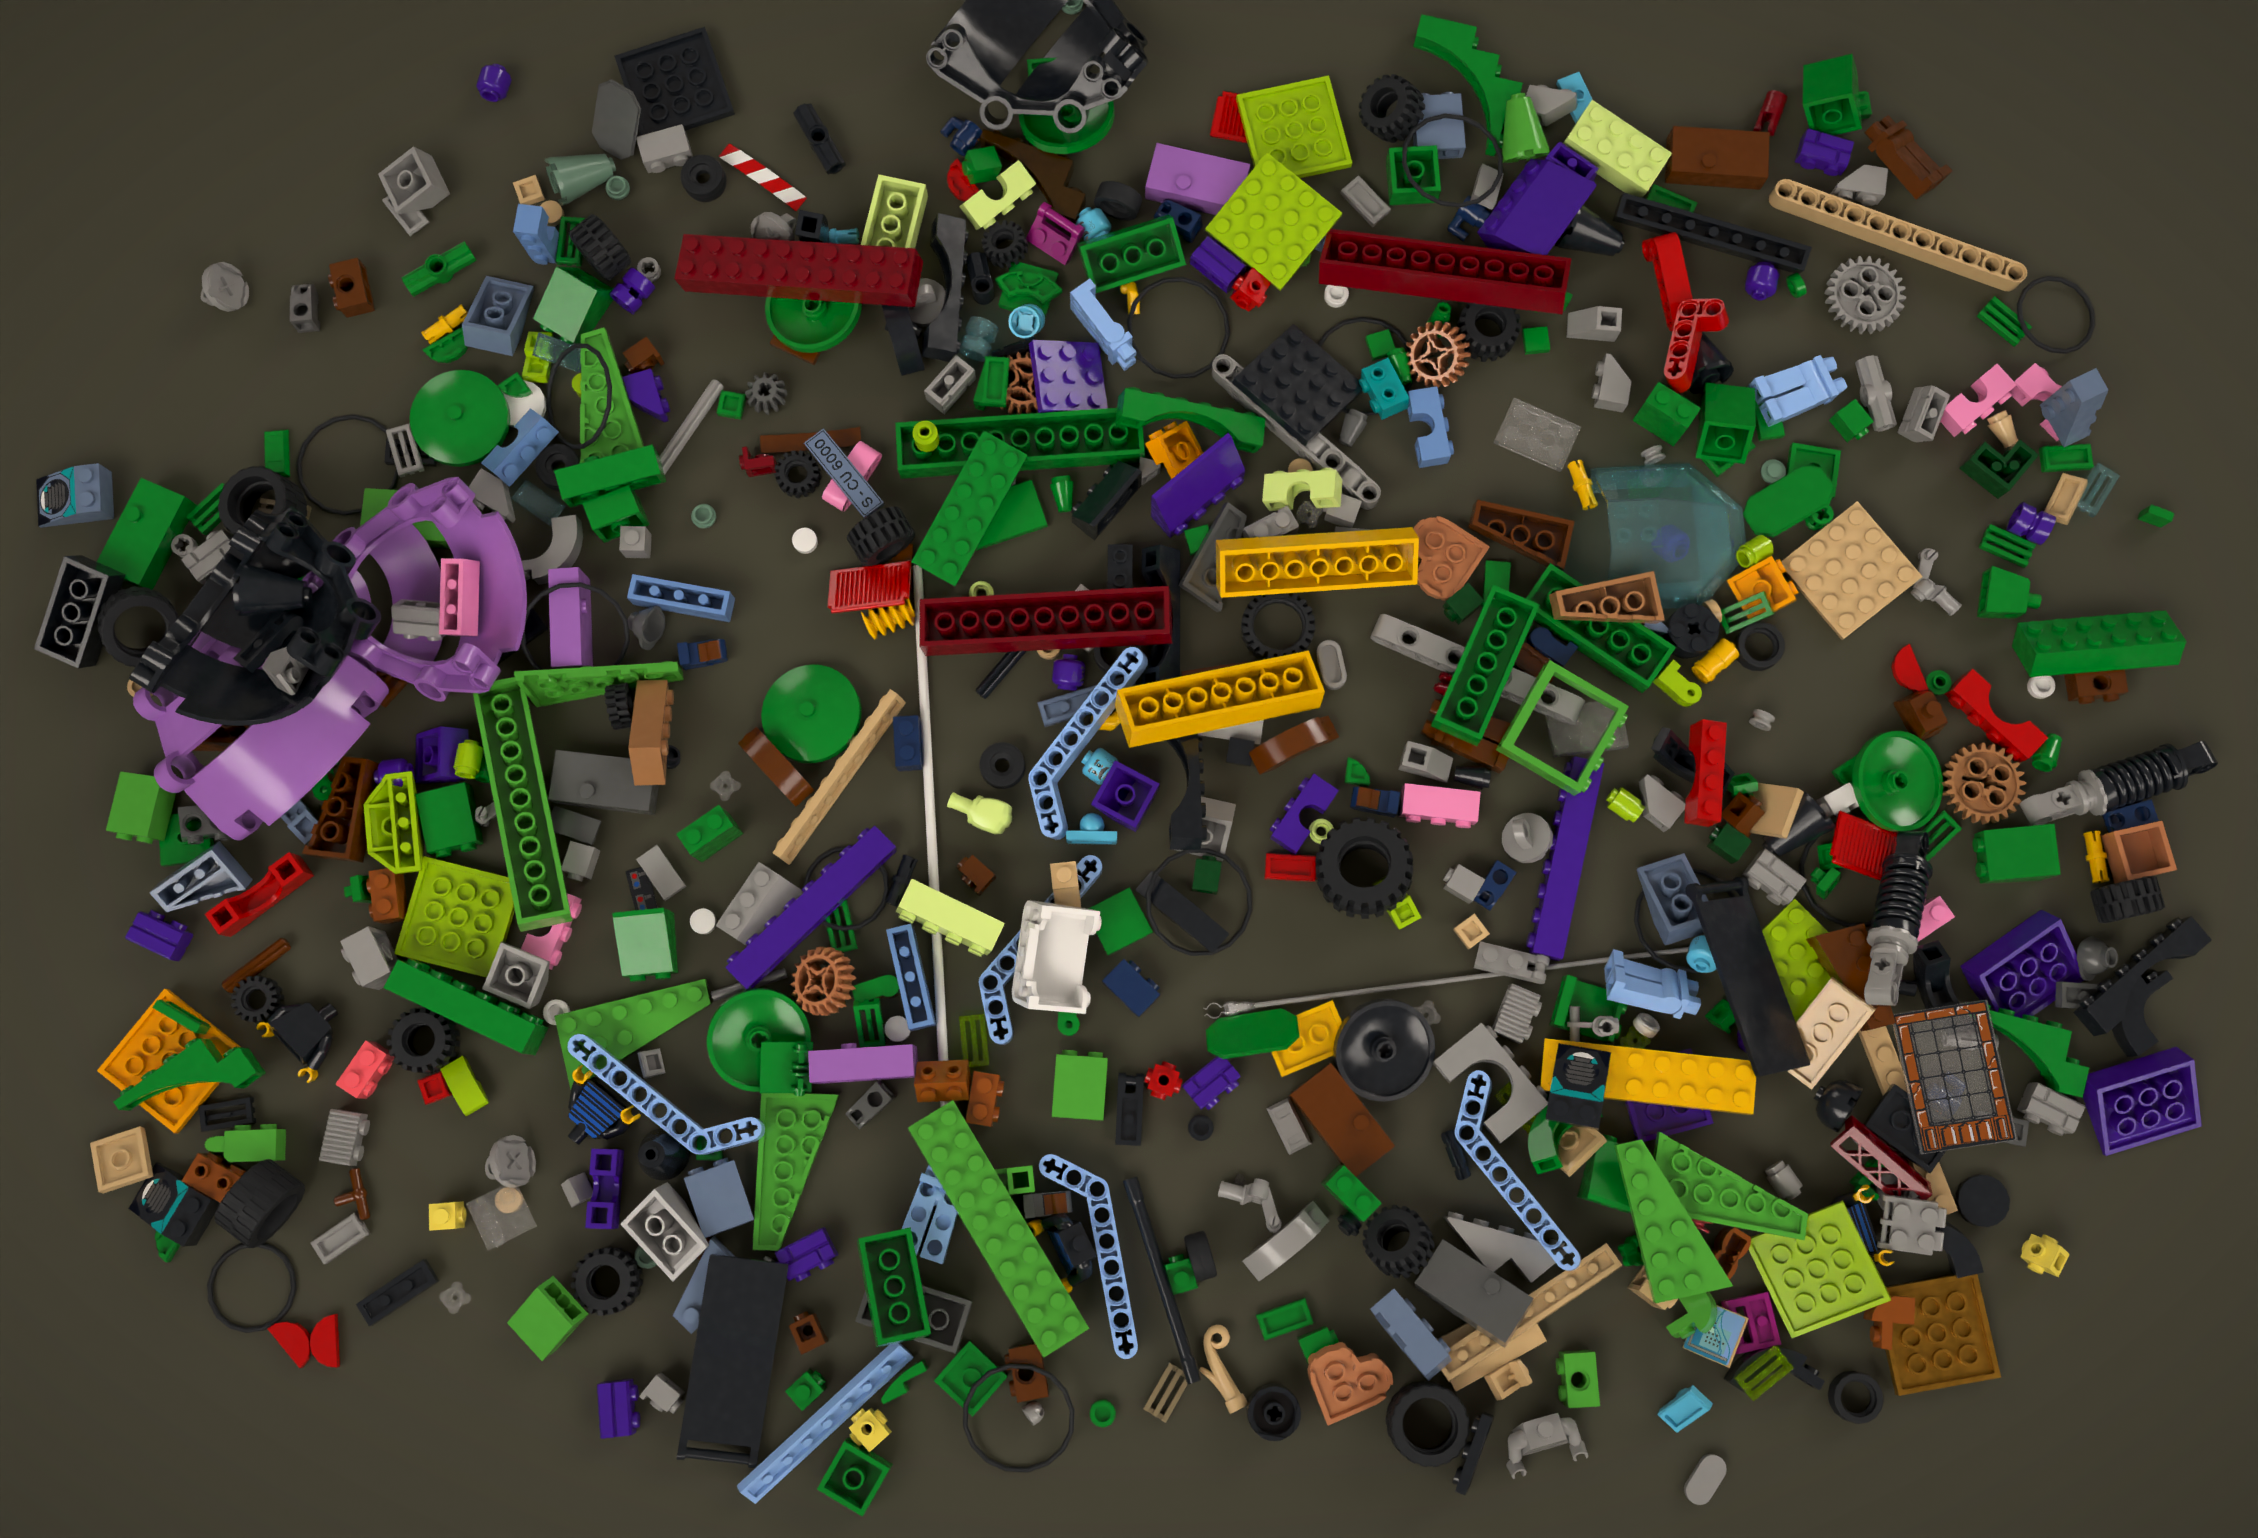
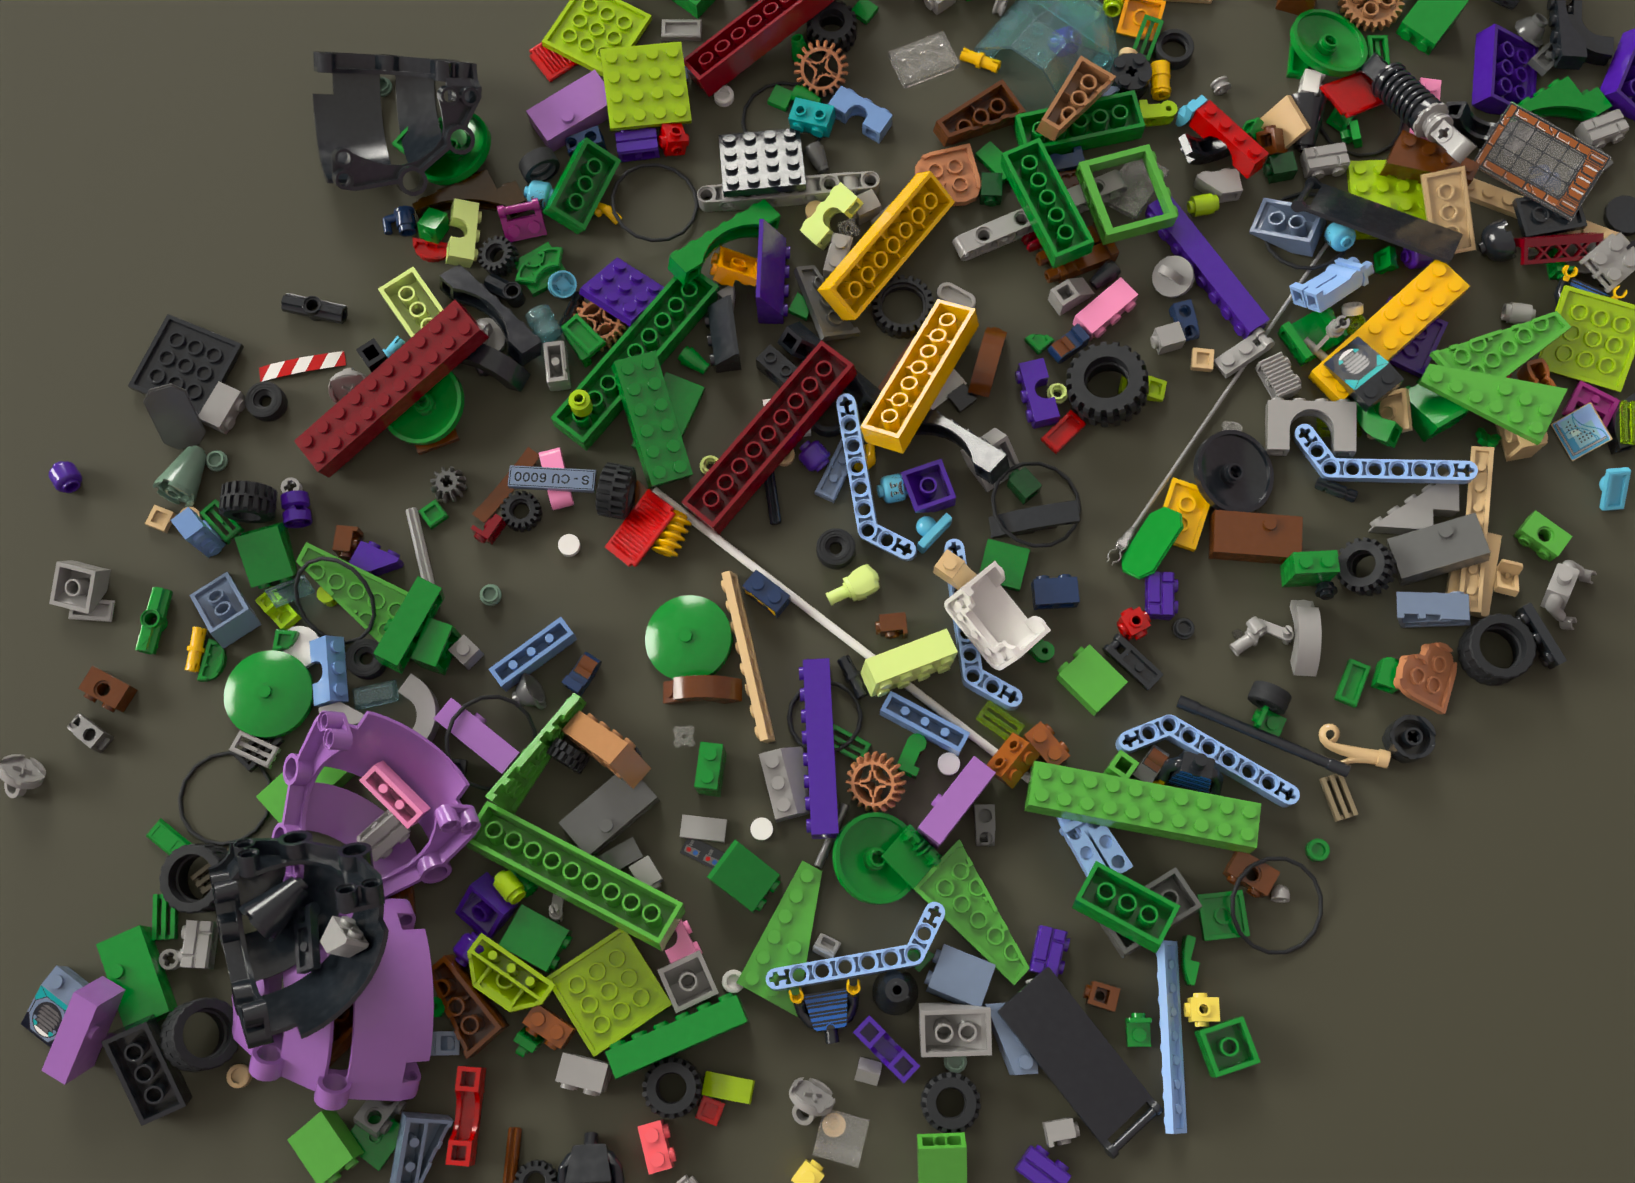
camera: 45 degrees left, 5 degrees down
(65, 532) = (83, 1029): none -> medium lavender brick
(868, 1006) = (919, 767): green tile -> none
(1101, 327) = (610, 243): light blue hips -> none
(1289, 1126) = (1229, 574): light grey tile -> none
(1701, 1314) = (1562, 428): bright green brick -> none
(1704, 711) = (1187, 111): none -> medium azure slope

